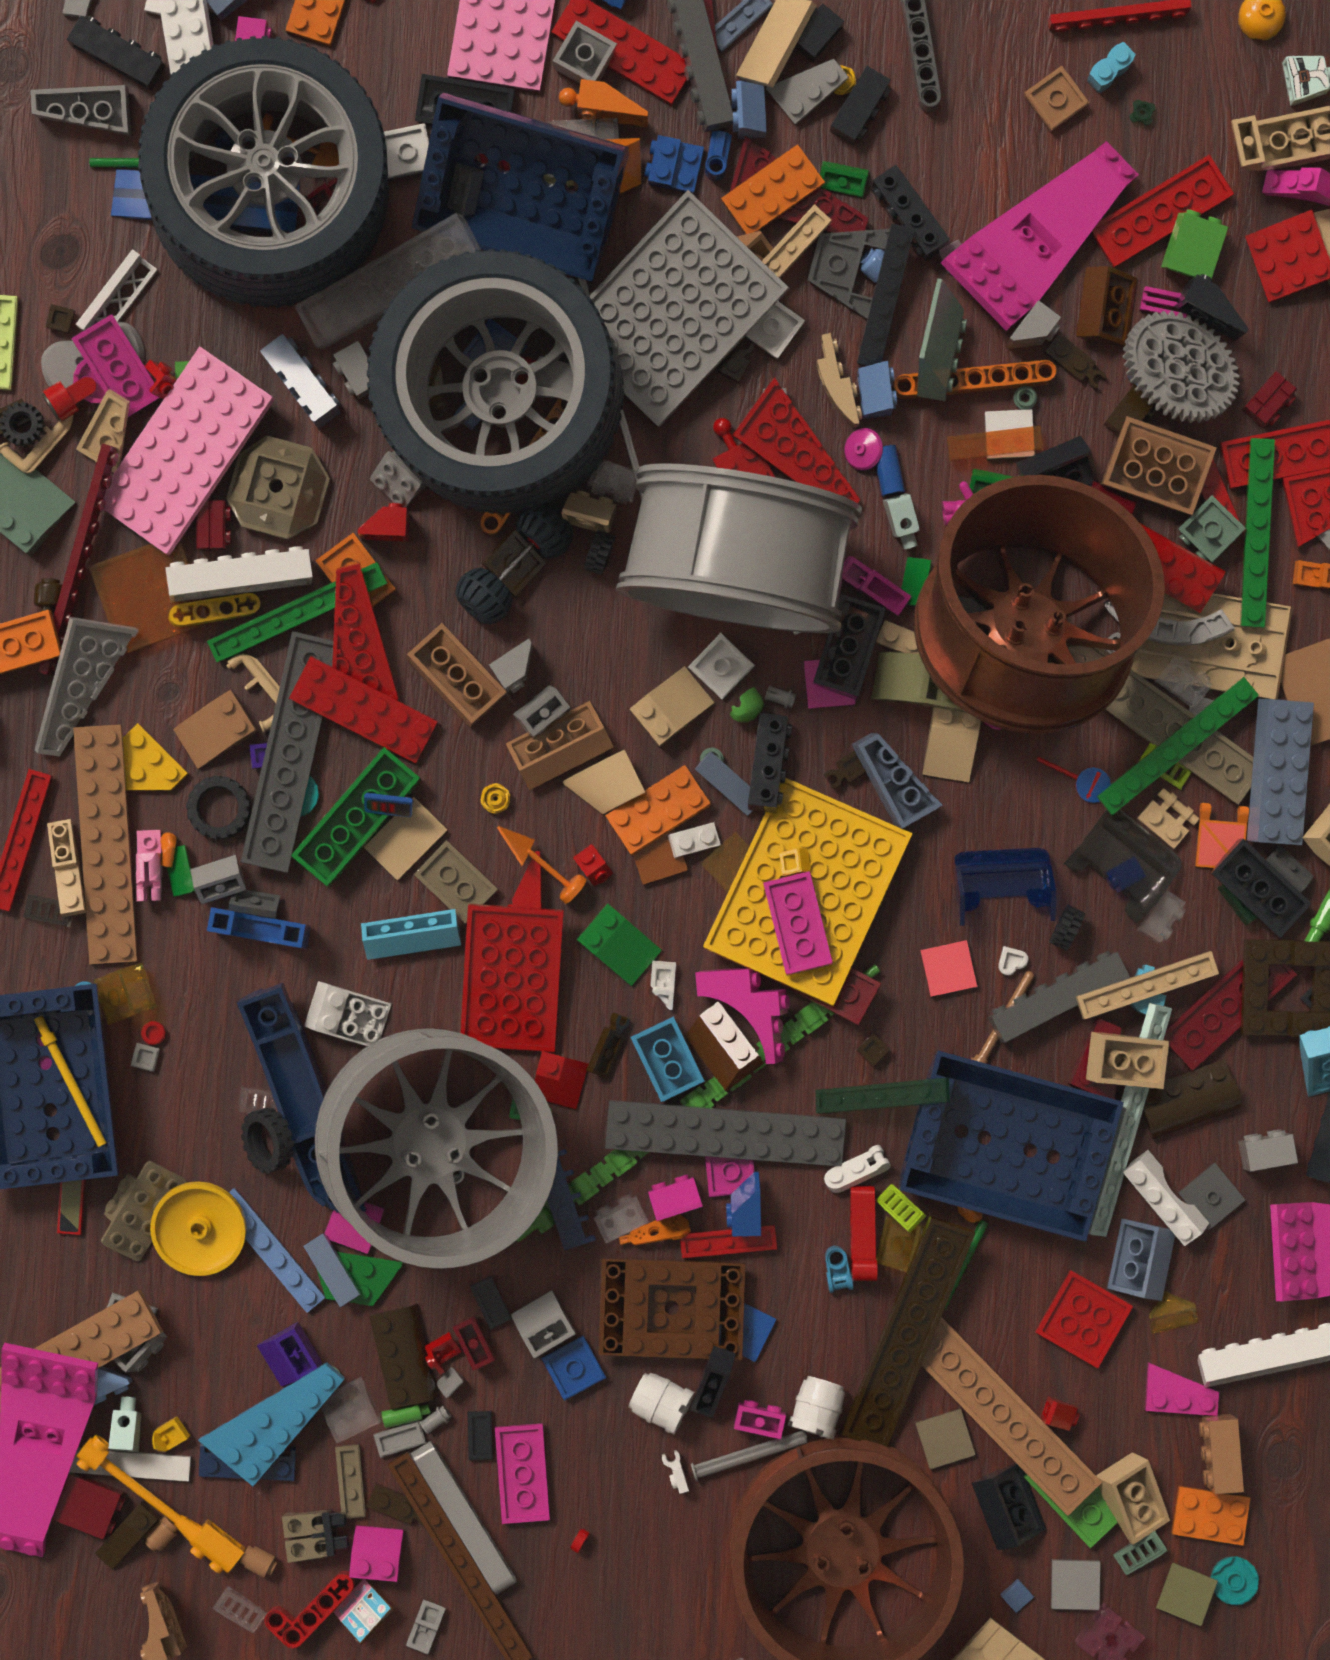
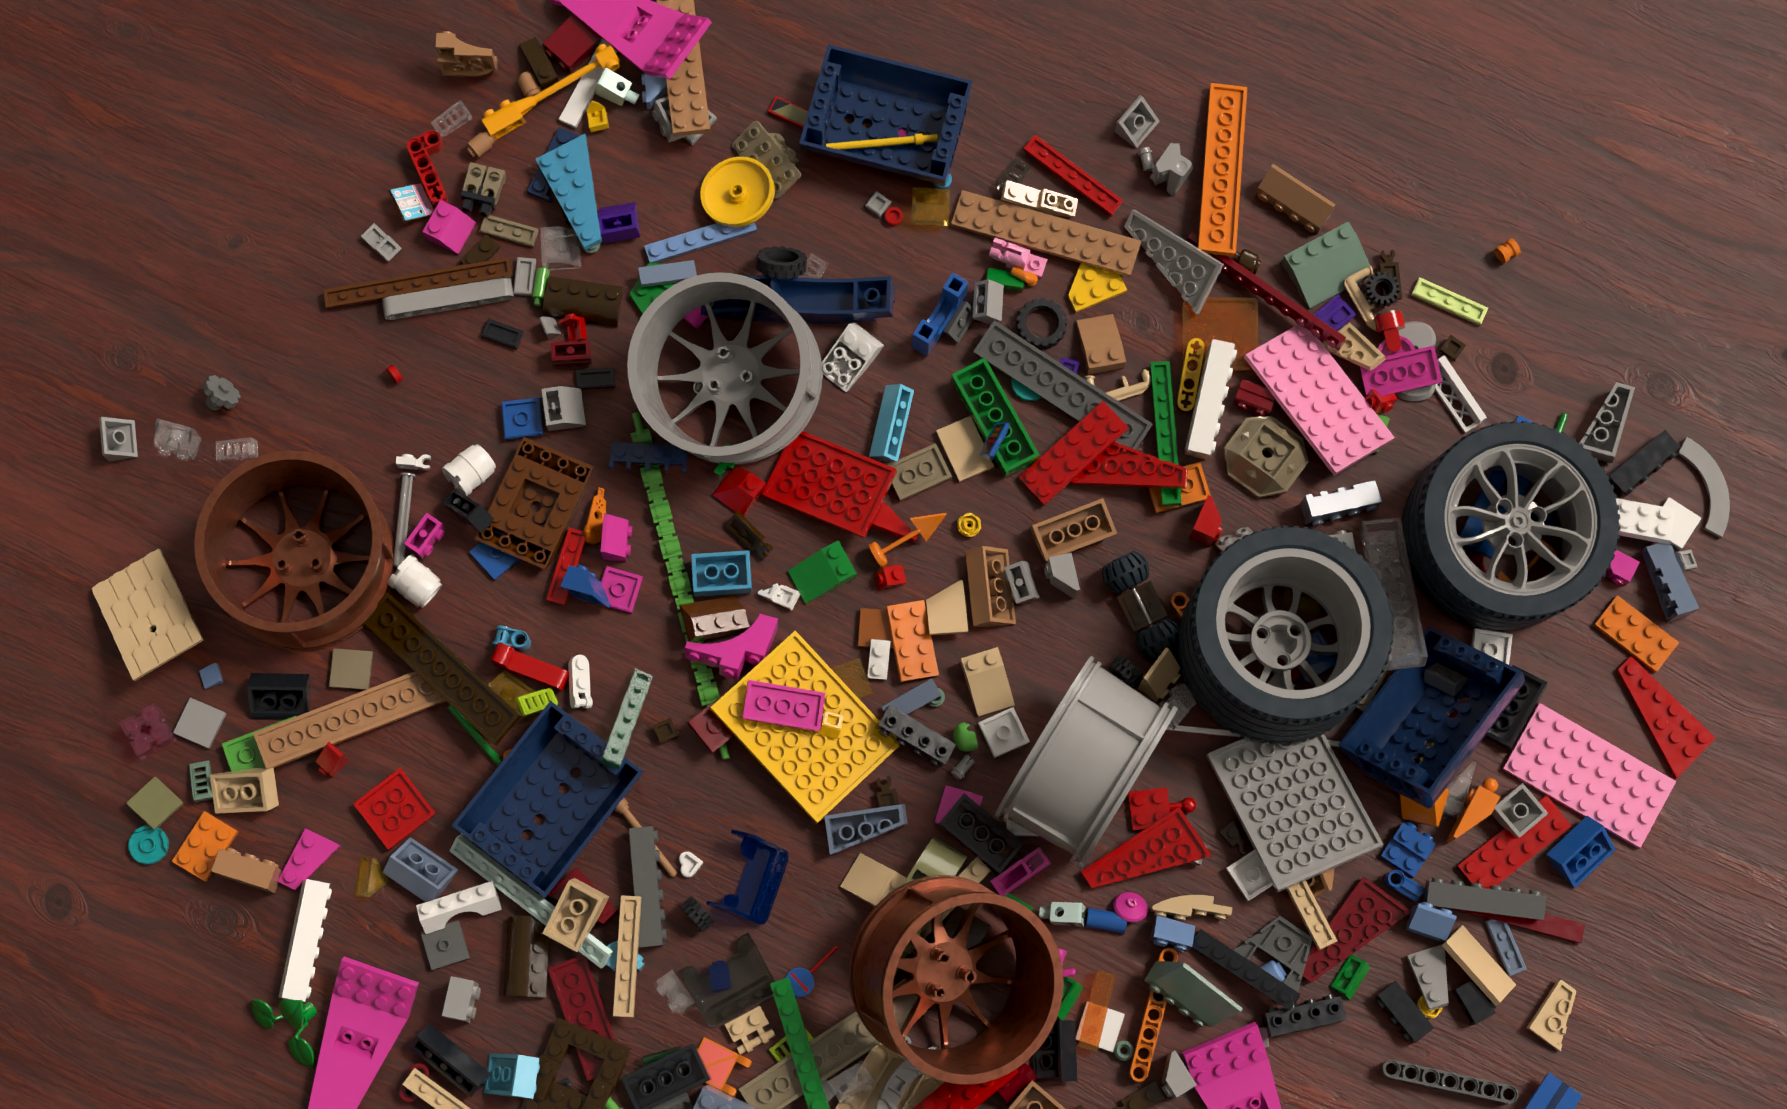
camera: 105 degrees right, 10 degrees down
(73, 470) = (1335, 313): none -> dark purple plate
(436, 1419) = (527, 306): light grey pin -> none
(522, 1473) = (461, 352): dark pink plate -> none
(621, 1218) = (617, 494): clear brick -> none
(725, 1133) = (648, 595): dark grey plate -> none
(773, 190) = (1360, 915): orange plate -> none
(948, 968) = (703, 813): coral tile -> none

